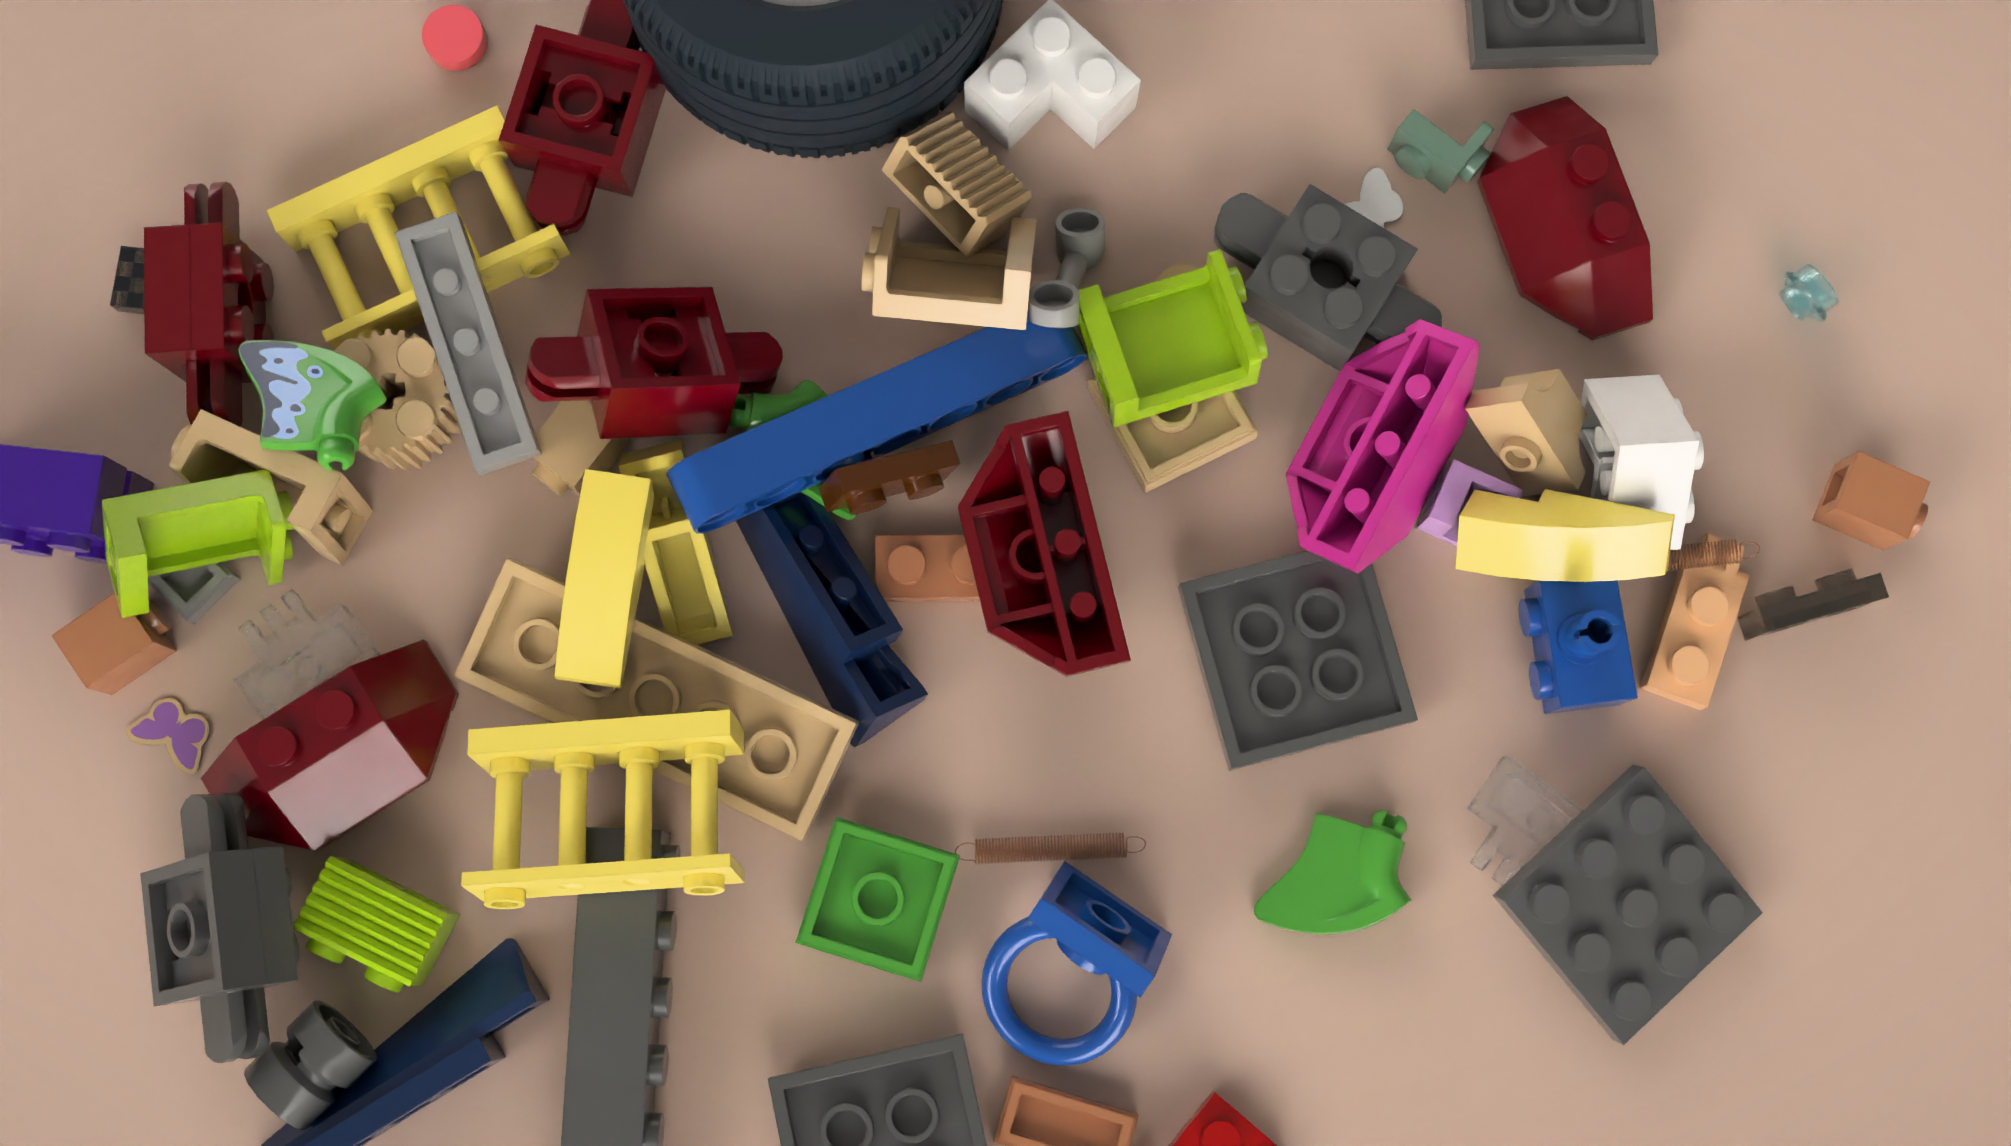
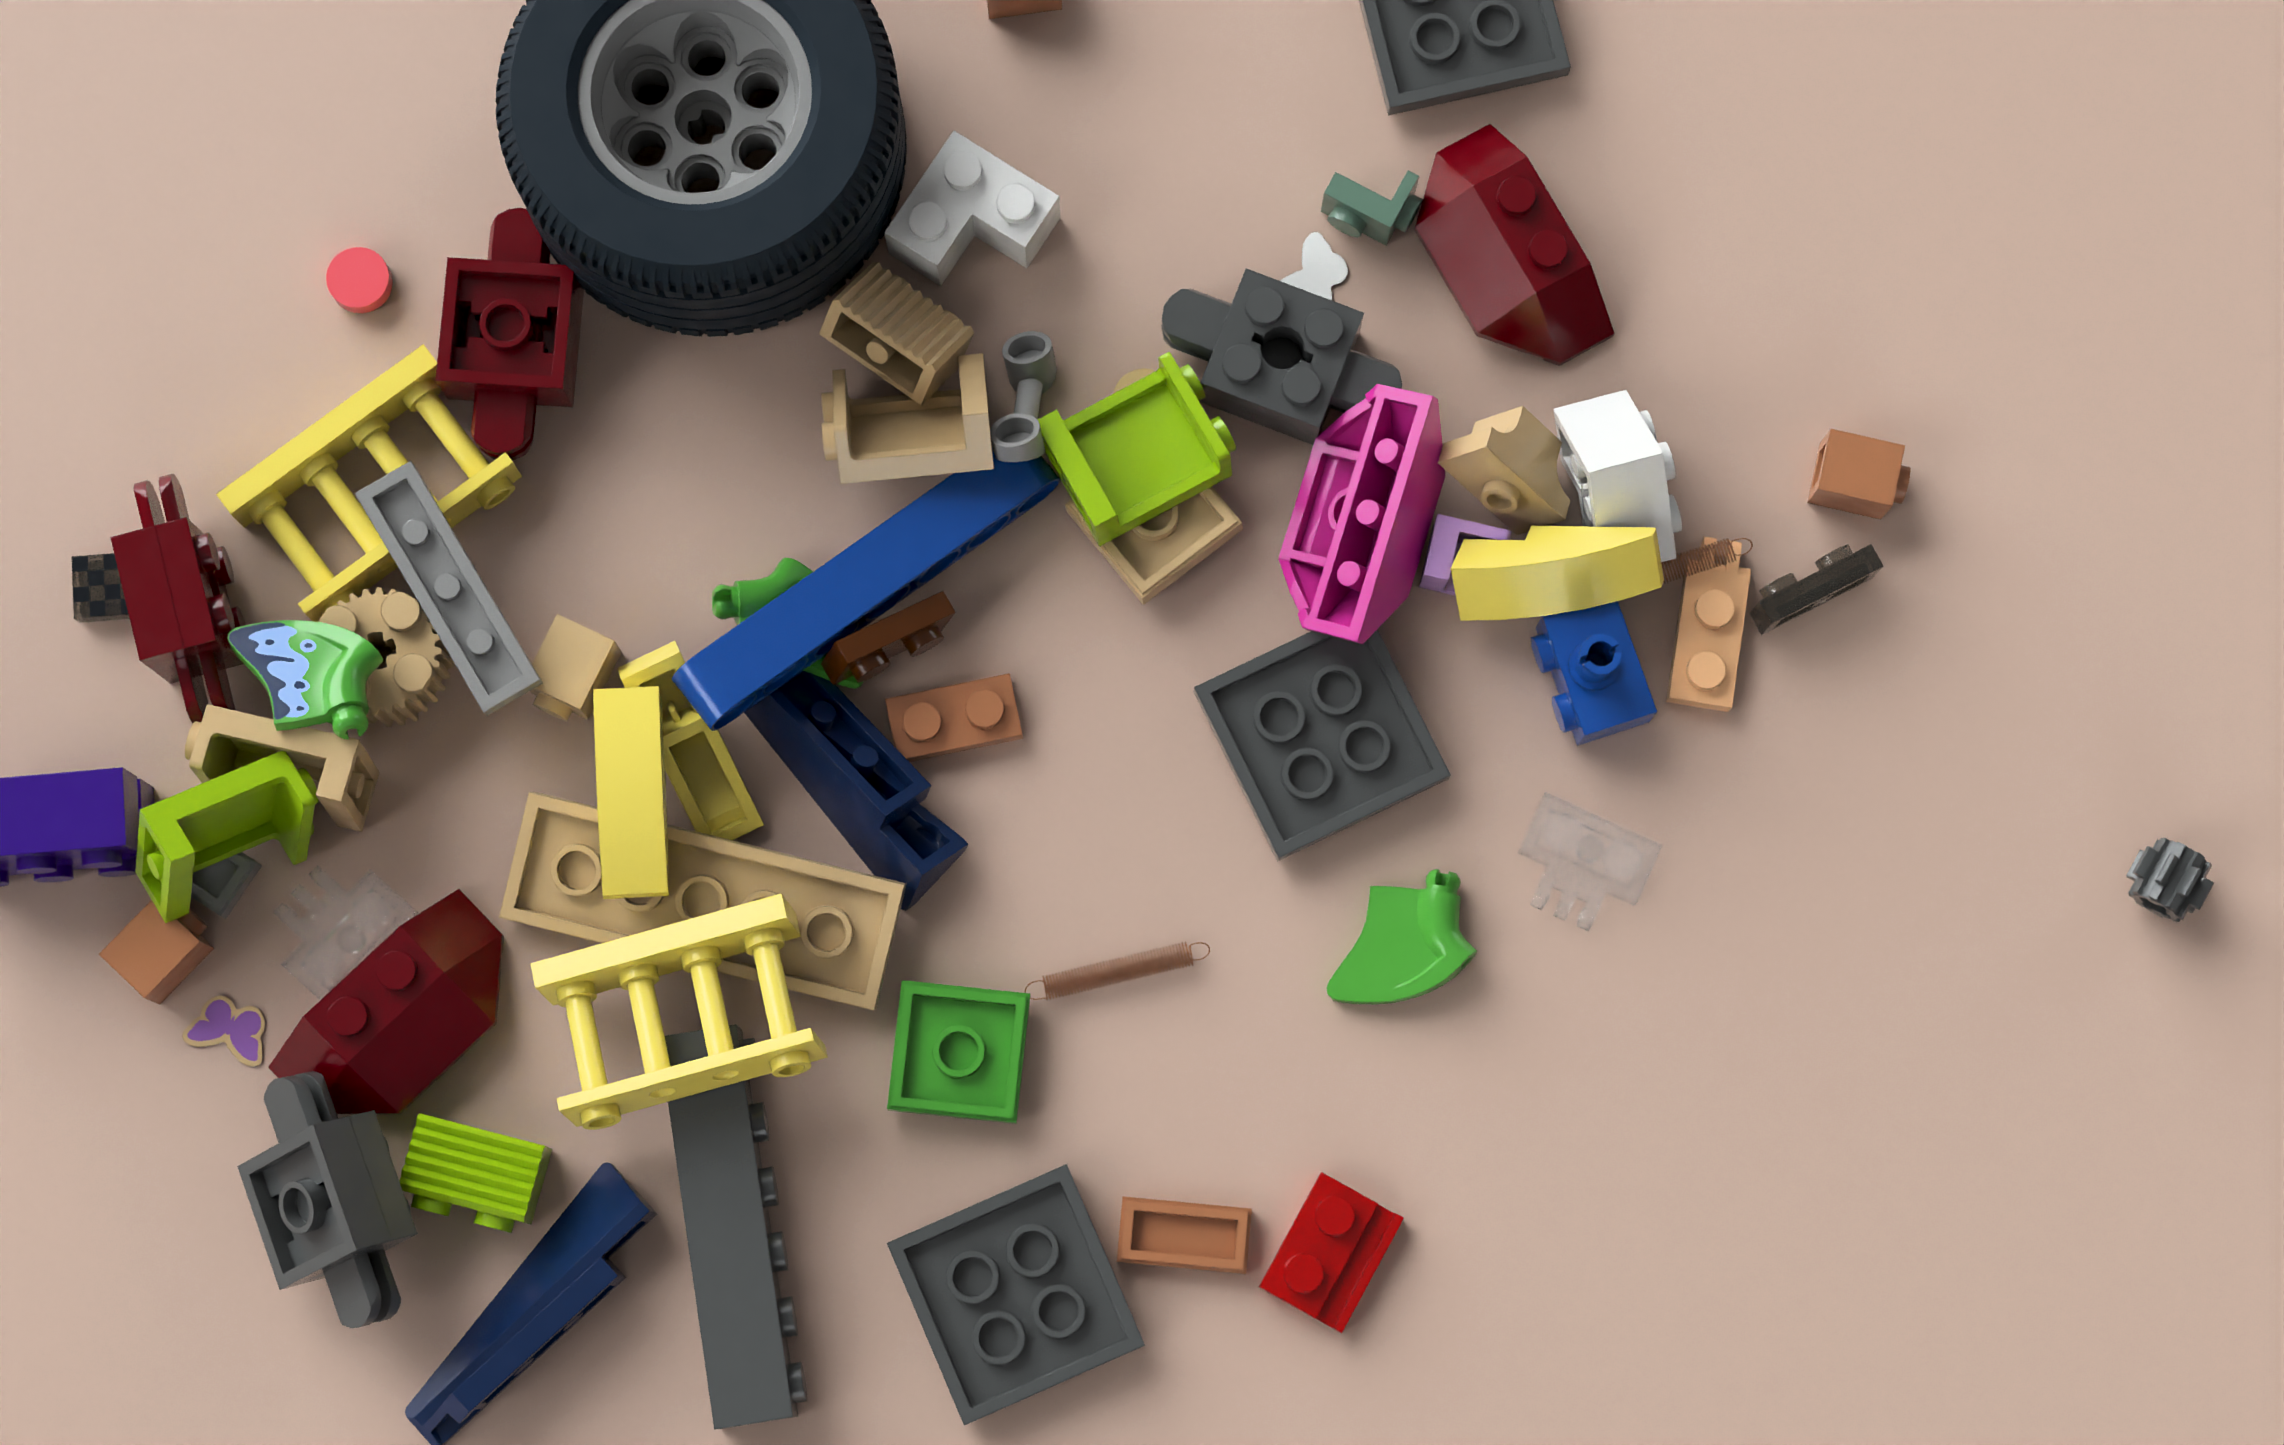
camera: 10 degrees left, 0 degrees up
(301, 1075) = (441, 1317): dark grey wheel -> none
(648, 331) = (635, 571): dark red brick -> none
(1041, 550) = (1051, 681): dark red wedge -> none
(1095, 934) = (1174, 1041): blue tile -> none
(1628, 904) = (1685, 912): dark grey plate -> none
(1808, 294) = (1761, 279): clear light blue plate -> none

